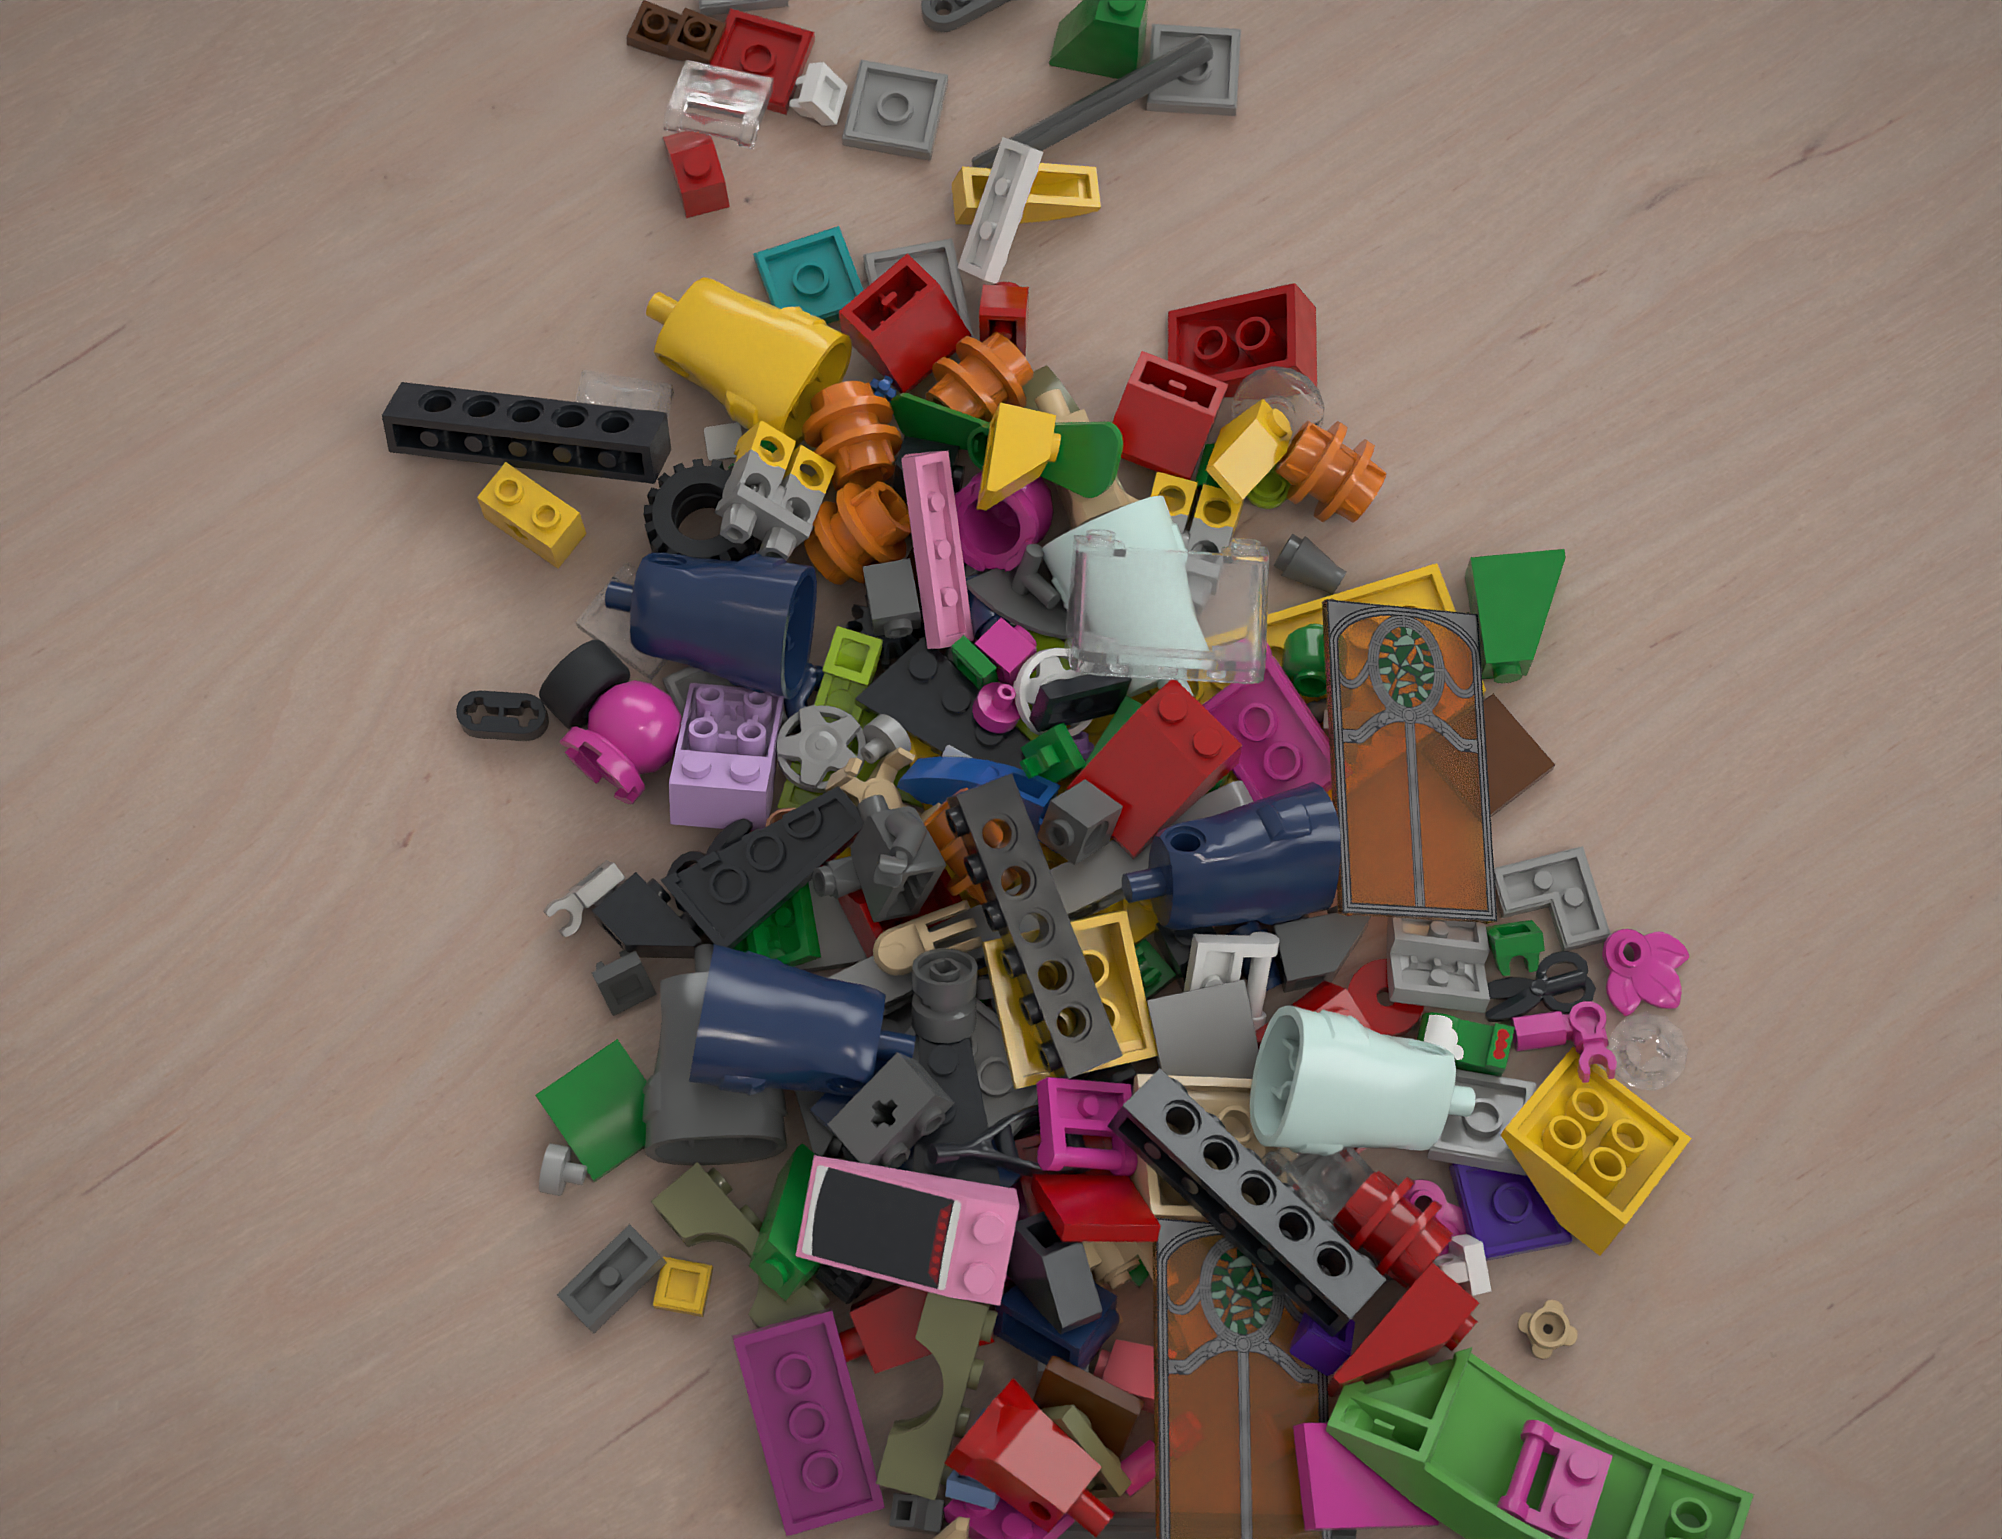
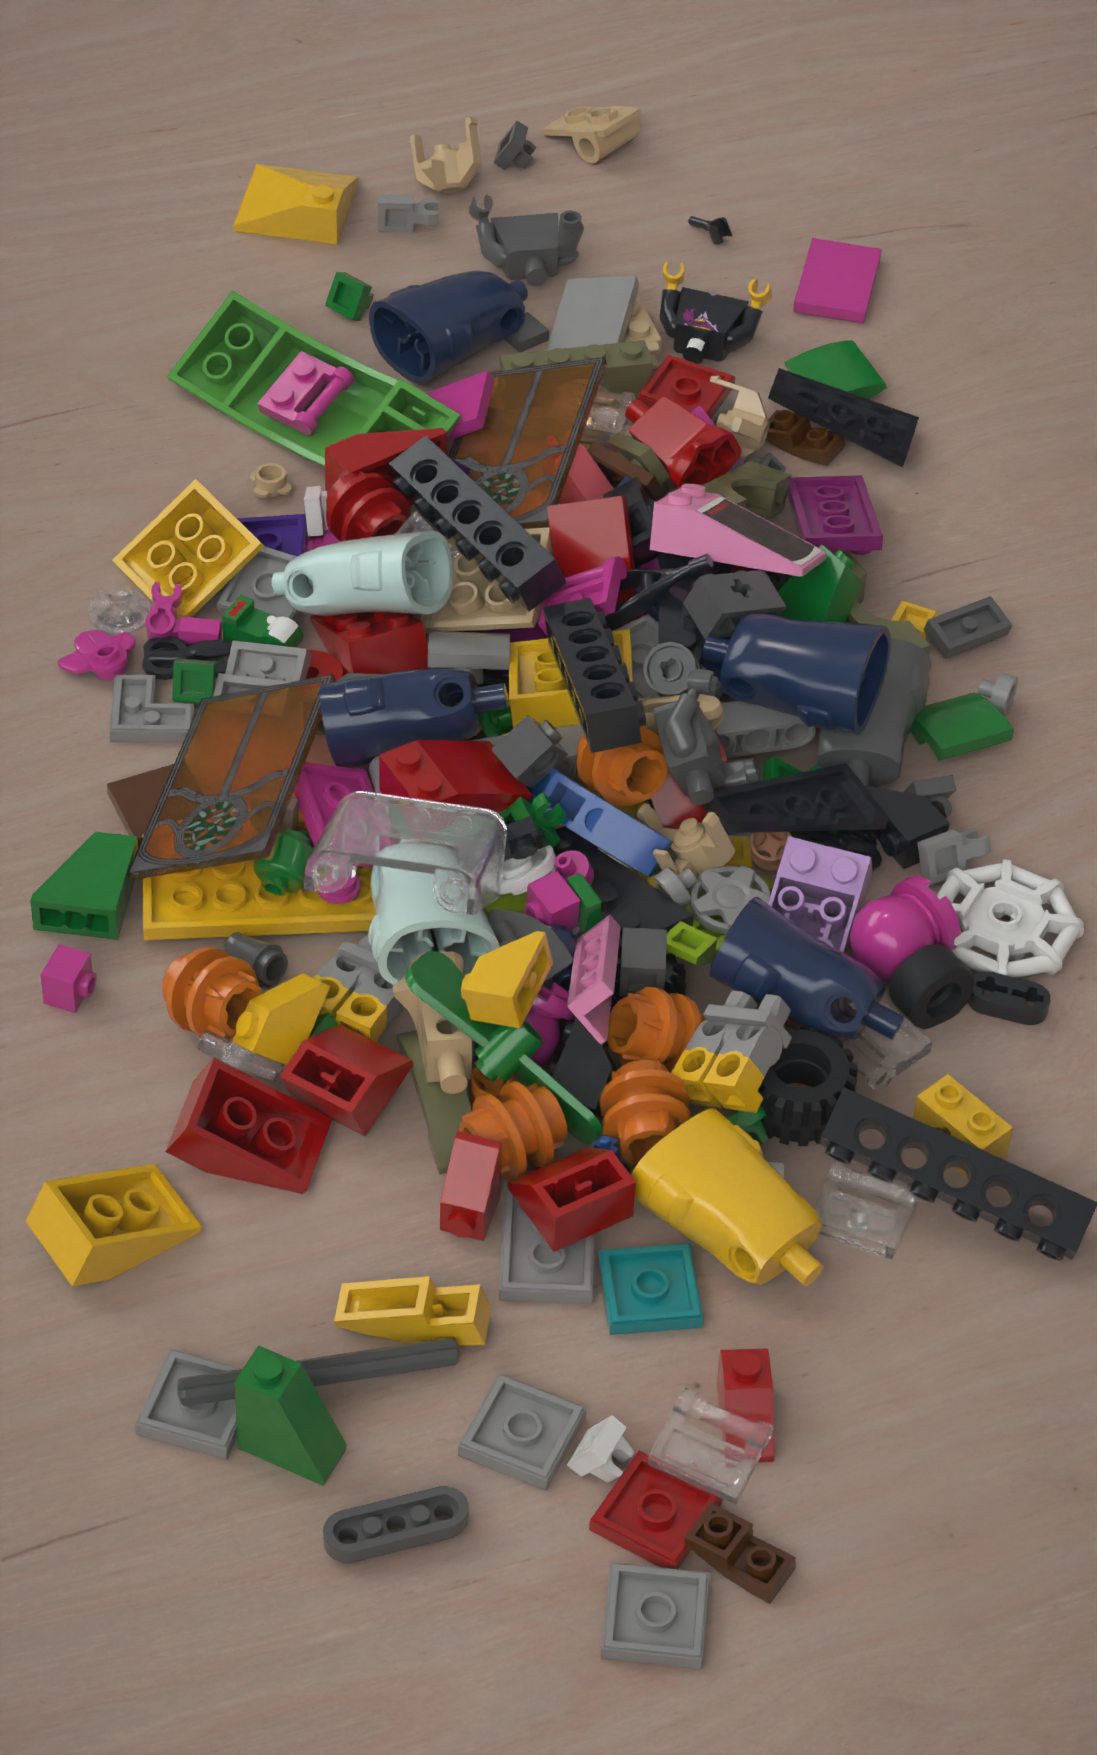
camera: 170 degrees left, 25 degrees down
(529, 845) = (1020, 897): none -> white plate
(1000, 210) = (447, 1263): white plate -> none
(1335, 219) = (109, 1221): none -> yellow slope
(1489, 485) = (68, 978): none -> dark pink plate

